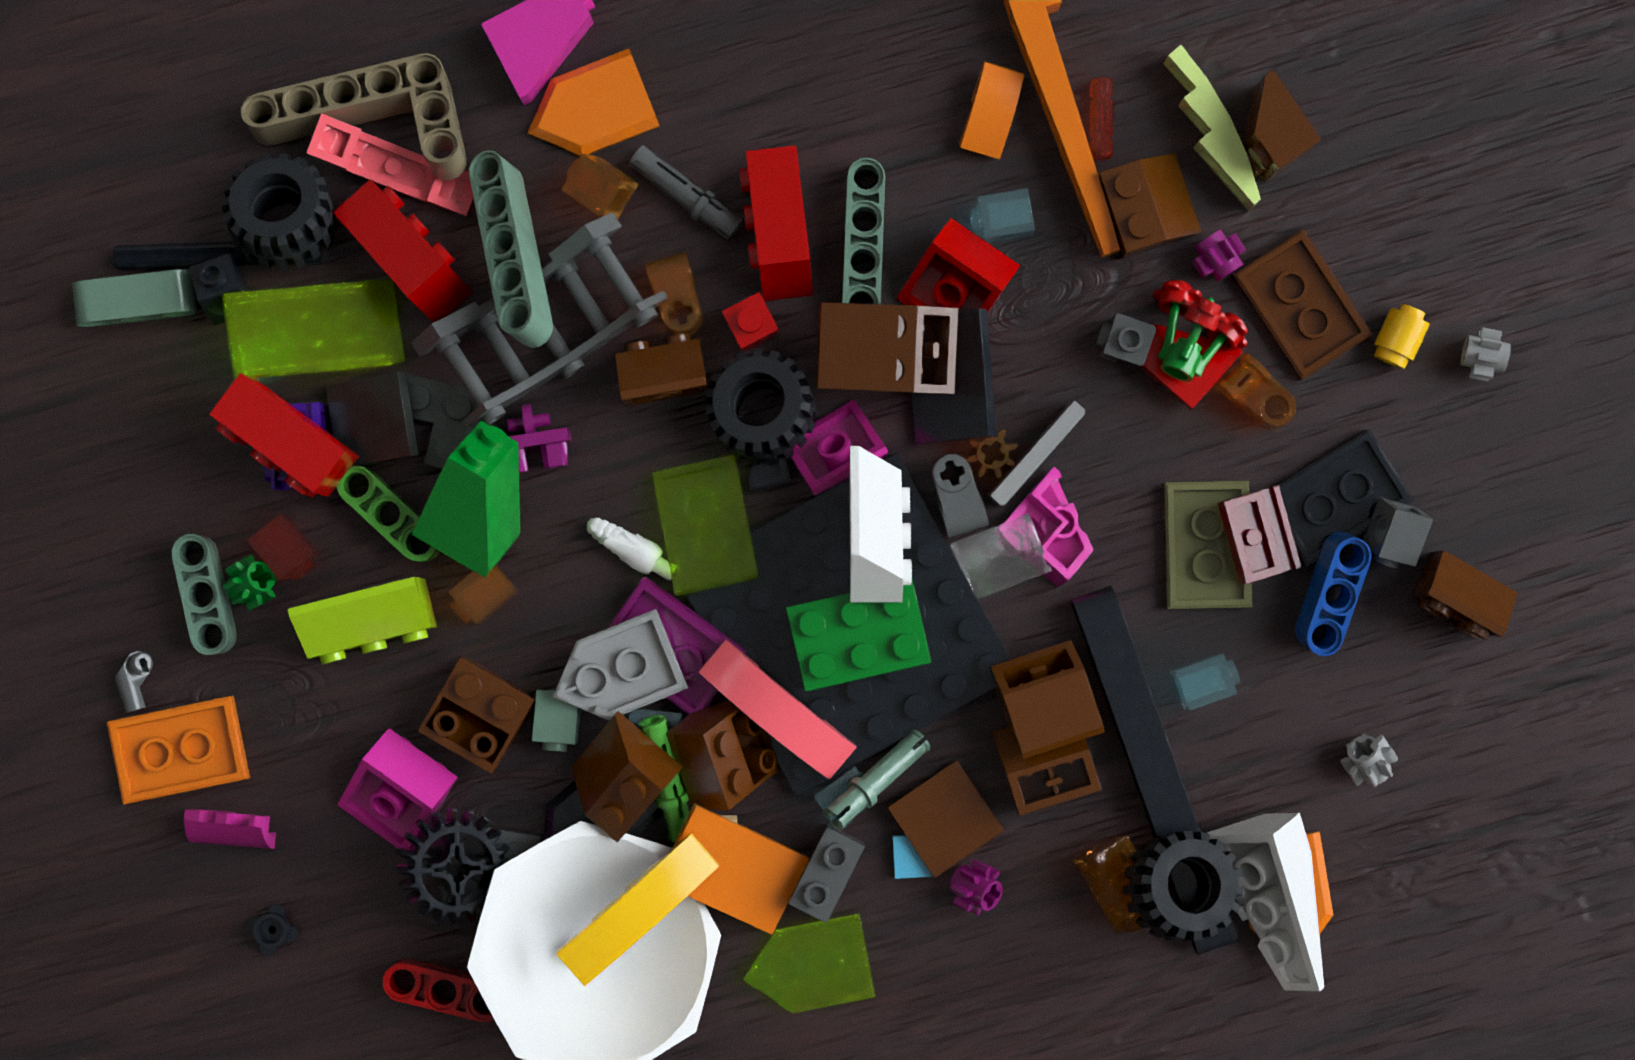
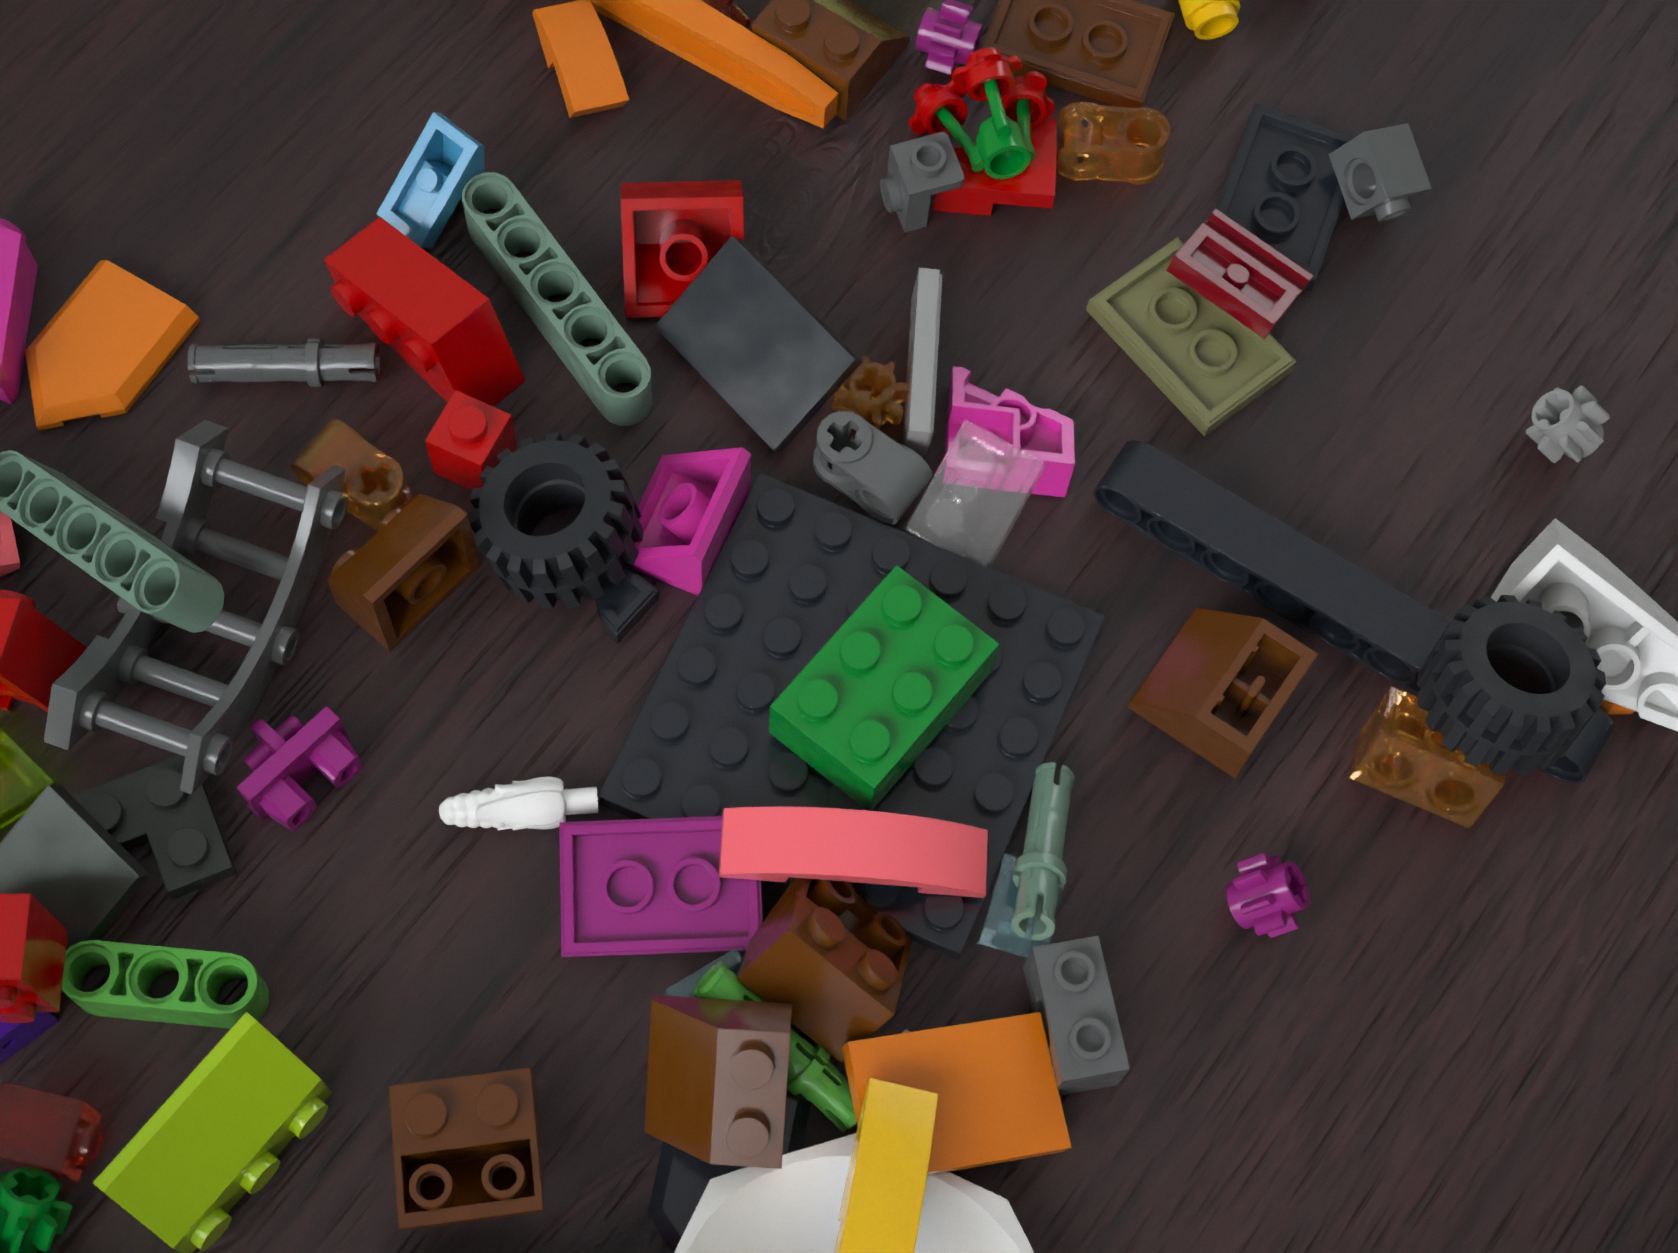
camera: 45 degrees left, 20 degrees down
(475, 501) = (263, 867): green slope -> none
(481, 597) = (361, 994): clear orange brick -> none
(555, 722) = (579, 1082): sand green brick -> none
(599, 185) = (163, 408): clear orange brick -> none
(621, 668) = (616, 945): light grey tile -> none
(705, 525) = (593, 709): clear neon green tile -> none
(814, 965) = (1153, 1153): clear neon green tile -> none
(842, 140) = (432, 181): none -> dark azure slope
(877, 529) = (807, 539): white slope -> none
(887, 348) = (660, 338): reddish brown slope -> none
(906, 860) = (1161, 921): medium azure tile -> none
(945, 818) = (1160, 848): reddish brown tile -> none
(1003, 216) = (681, 144): clear light blue brick -> none
(1047, 699) = (1164, 605): reddish brown slope -> none
(1206, 681) = (1317, 471): clear light blue brick -> none
(1338, 613) = (1371, 279): blue beam -> none
(1465, 595) = (1507, 190): reddish brown slope -> none

